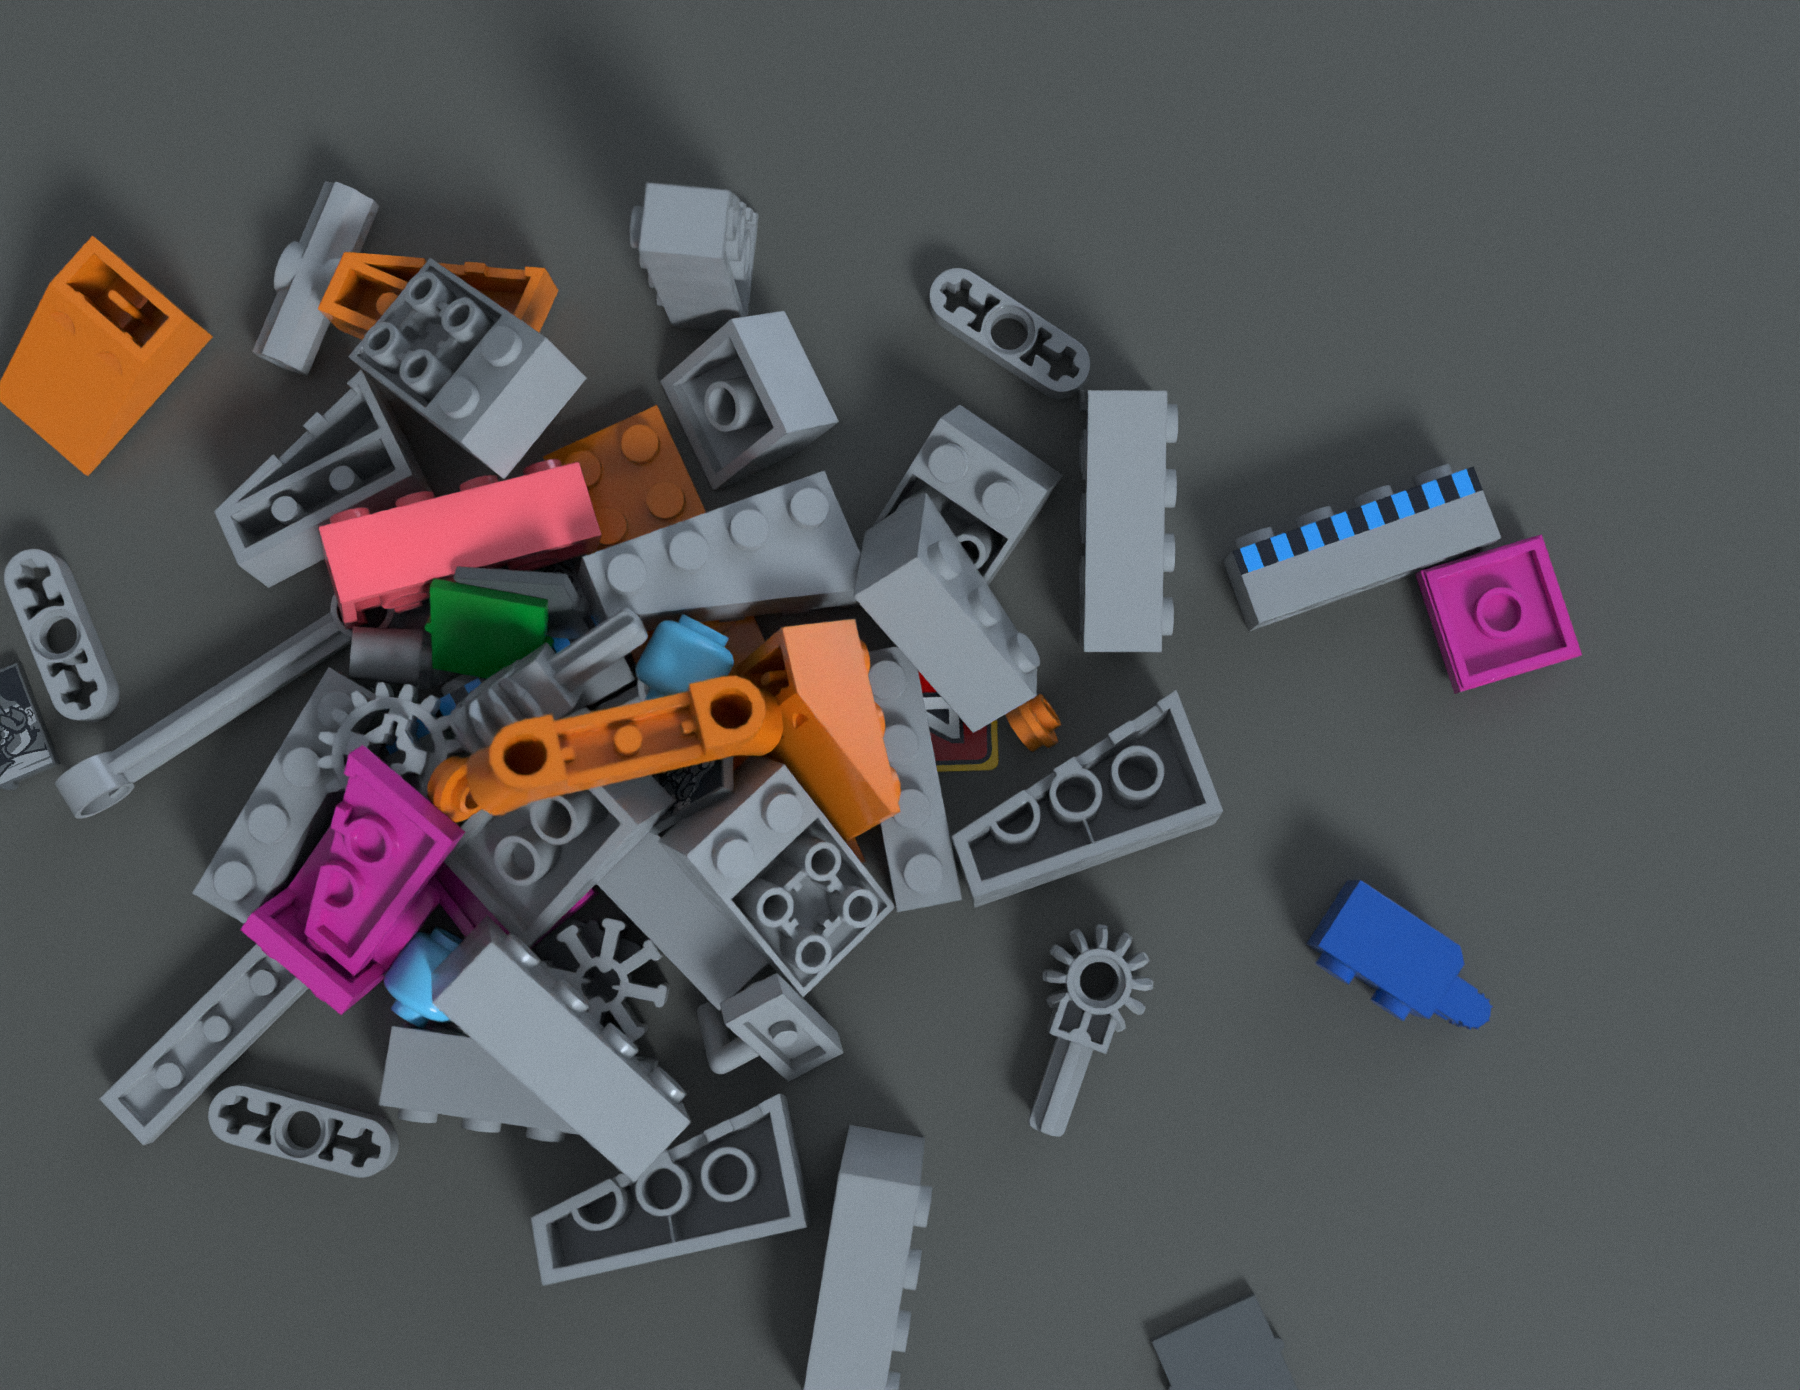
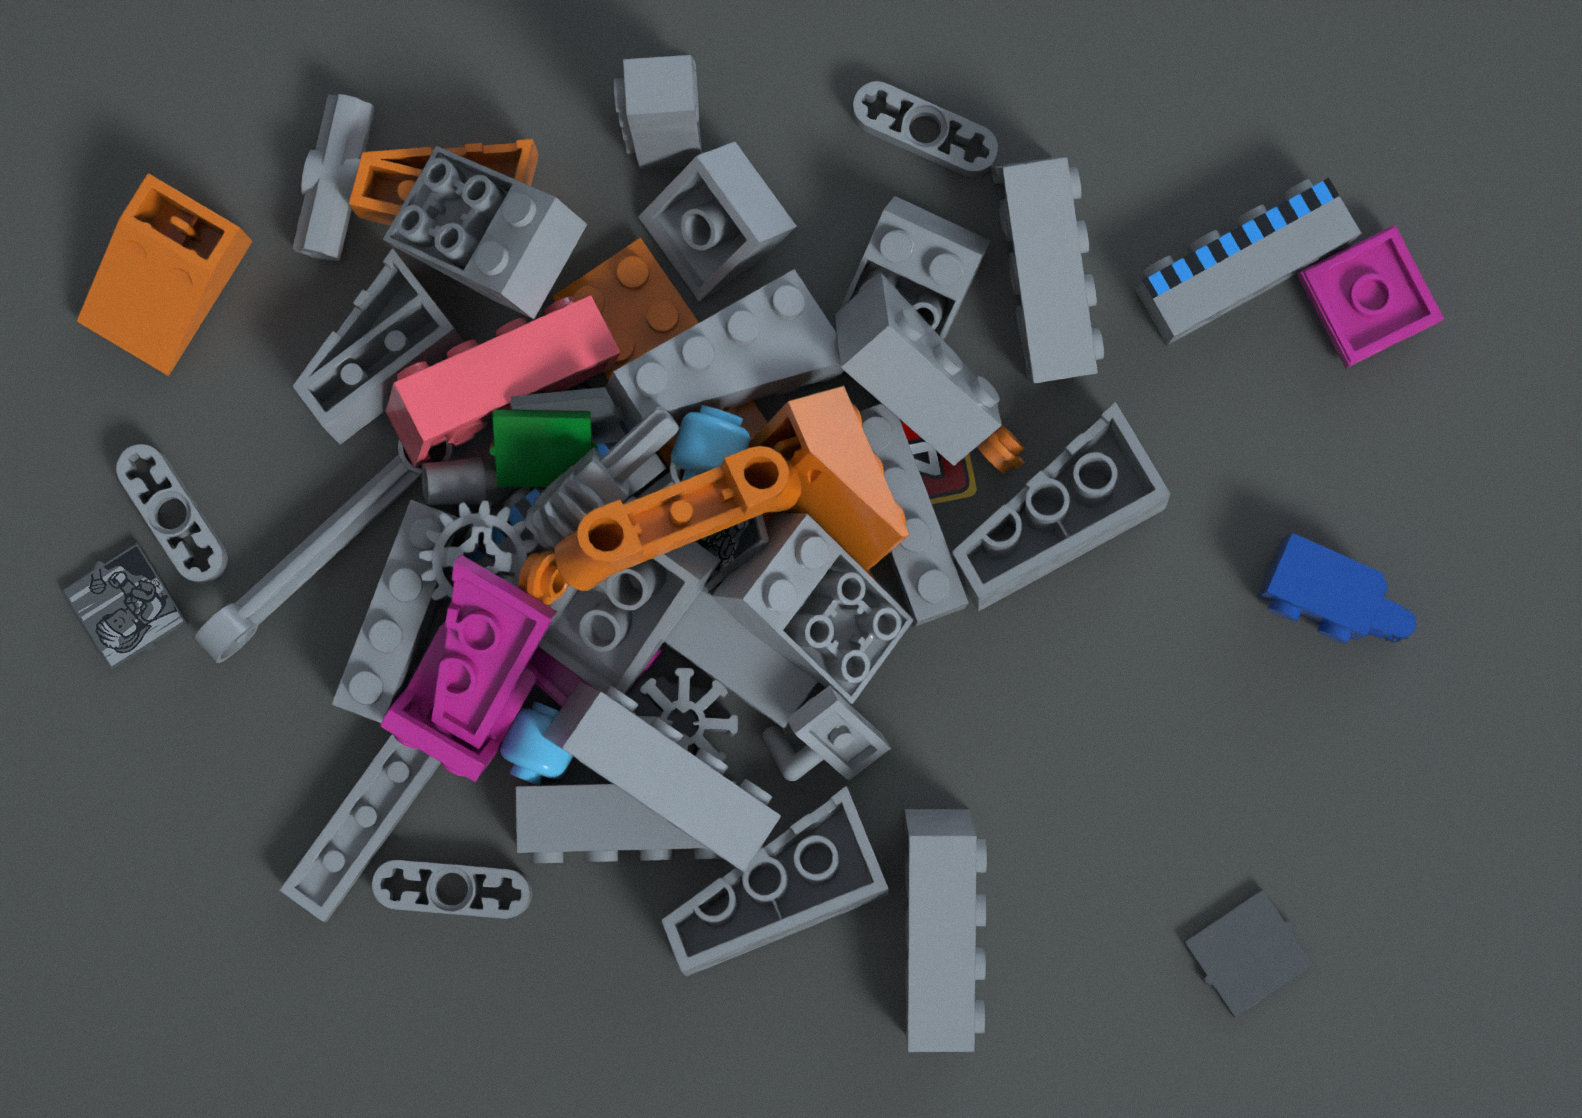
camera: 15 degrees left, 0 degrees up
(1083, 1021) = (1084, 688): light grey gear -> none

